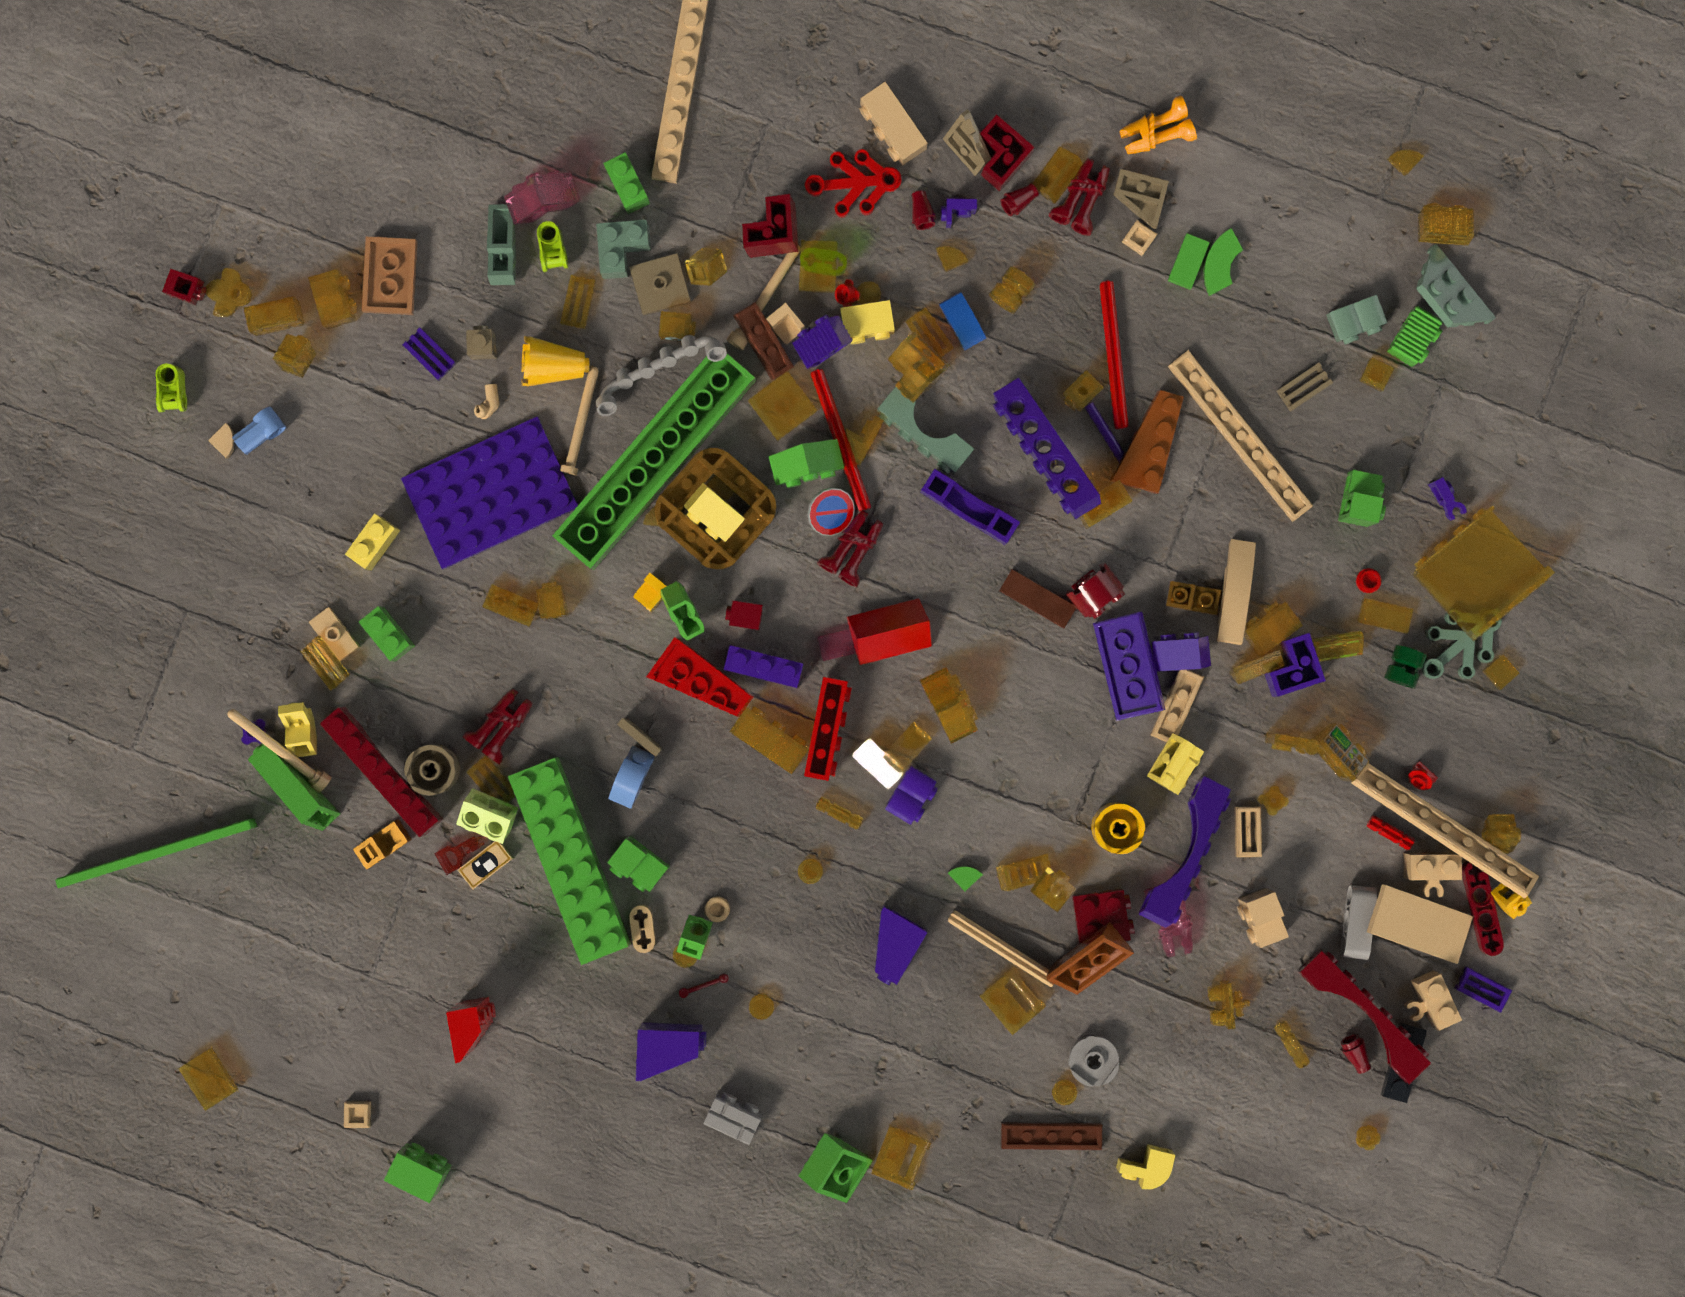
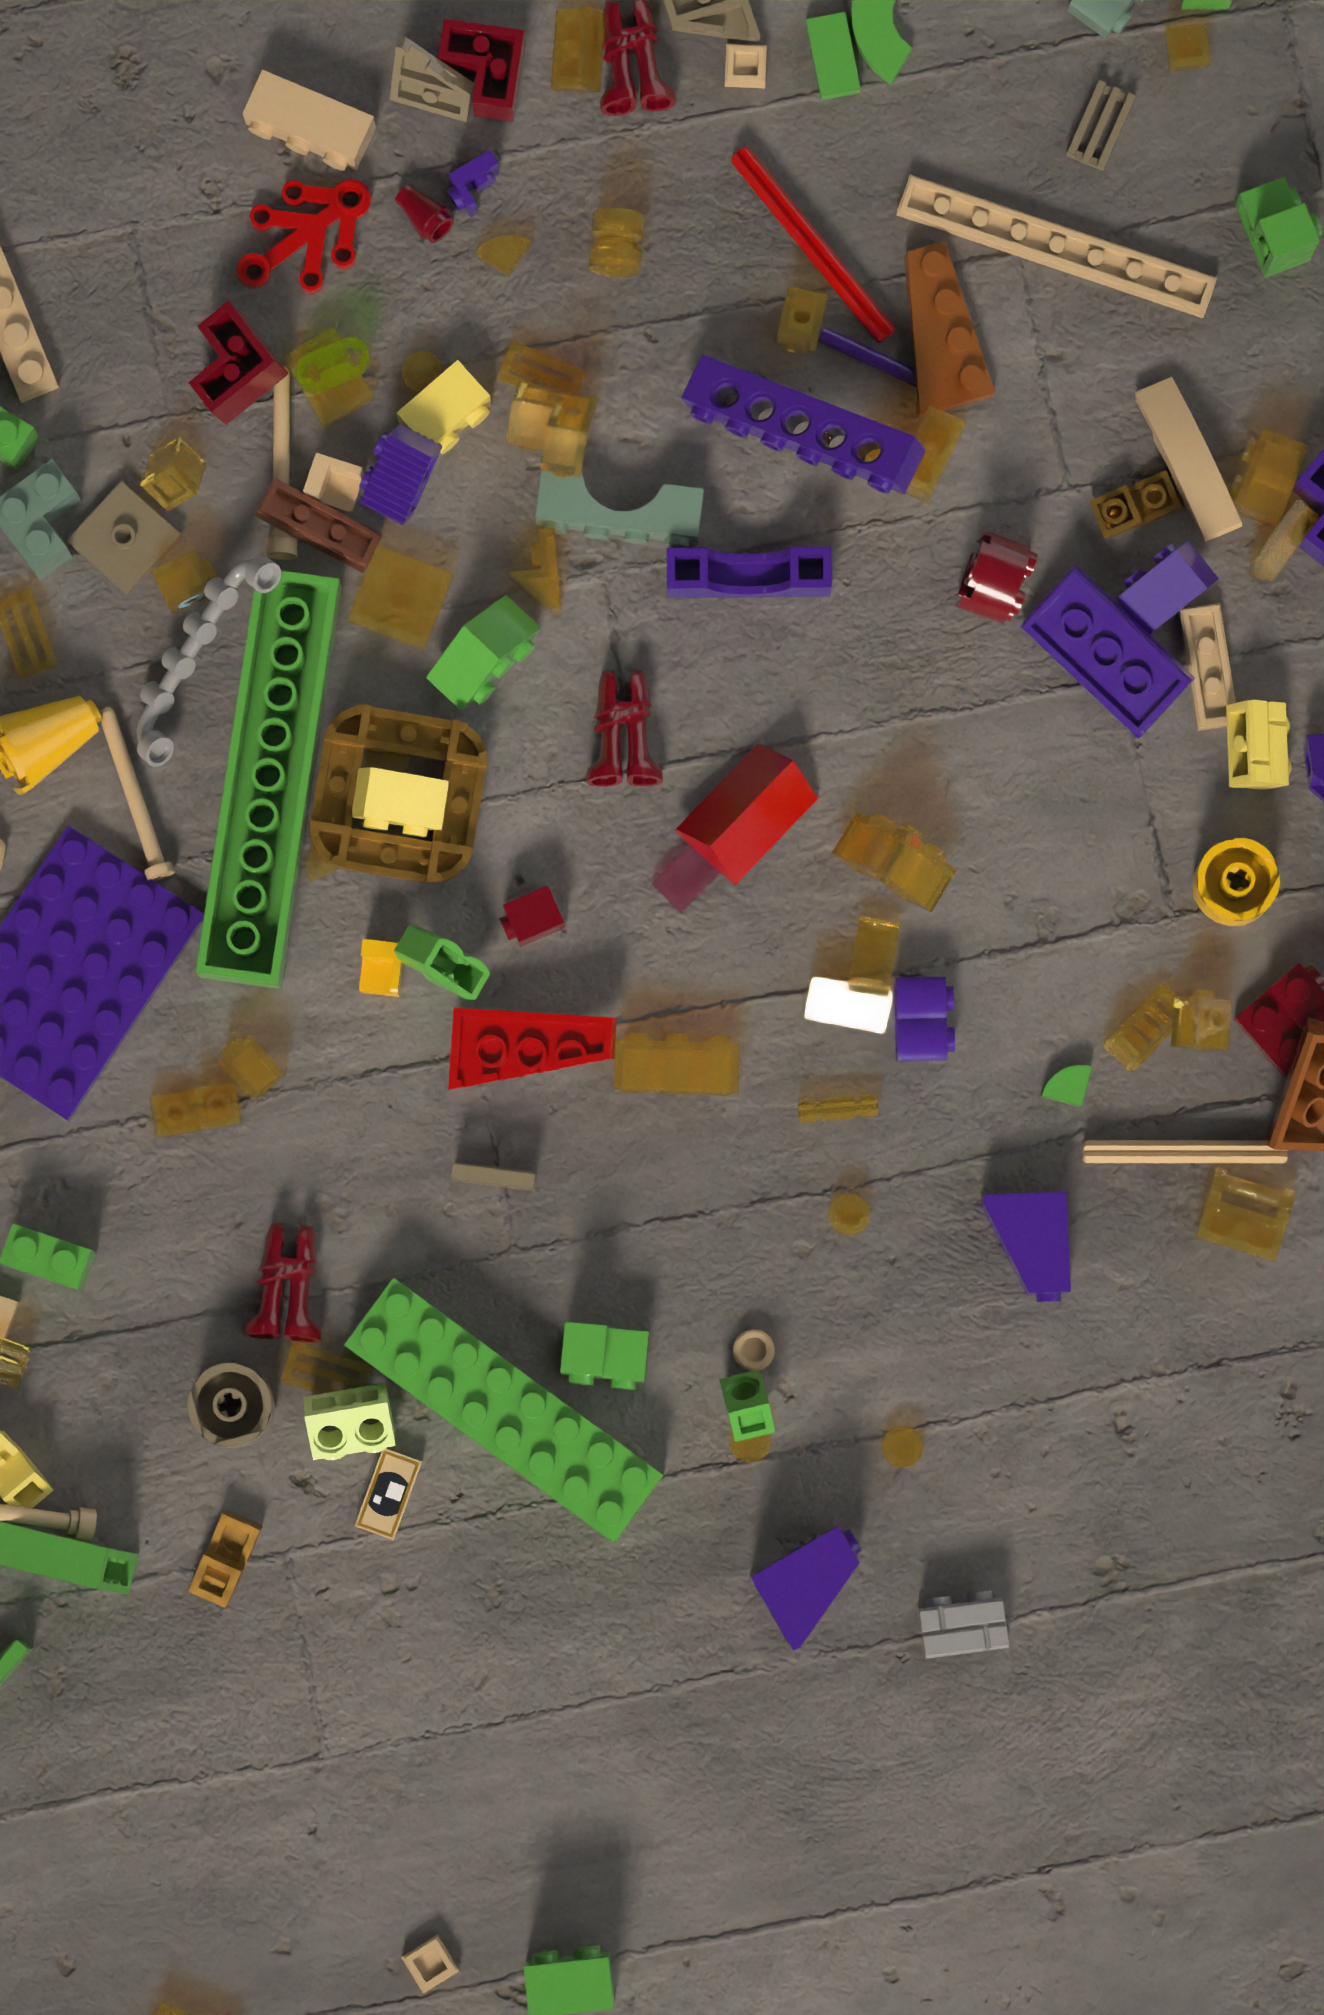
camera: 35 degrees left, 5 degrees down
(366, 756) = (161, 1454): dark red arch -> none
(468, 1024) = (512, 1724): red slope -> none
(472, 843) = (351, 1475): clear red piece -> none
(631, 777) = (517, 1240): medium blue brick -> none
(648, 927) = (659, 1450): tan beam -> none
(684, 992) = (781, 1497): dark red hinge -> none
(763, 666) = (604, 970): dark purple brick -> none
(826, 727) = (745, 999): red brick -> none
(830, 511) = (560, 699): piece -> none
(835, 1168) = (1150, 1605): bright green slope -> none
(838, 432) = (501, 585): red axle -> none
(846, 293) = (384, 392): red plate -> none
(893, 1153) = (1218, 1537): clear yellow plate -> none
(962, 320) = (575, 327): blue slope -> none
(1017, 200) = (546, 117): dark red cone -> none
(1037, 599) = (922, 641): copper tile -> none

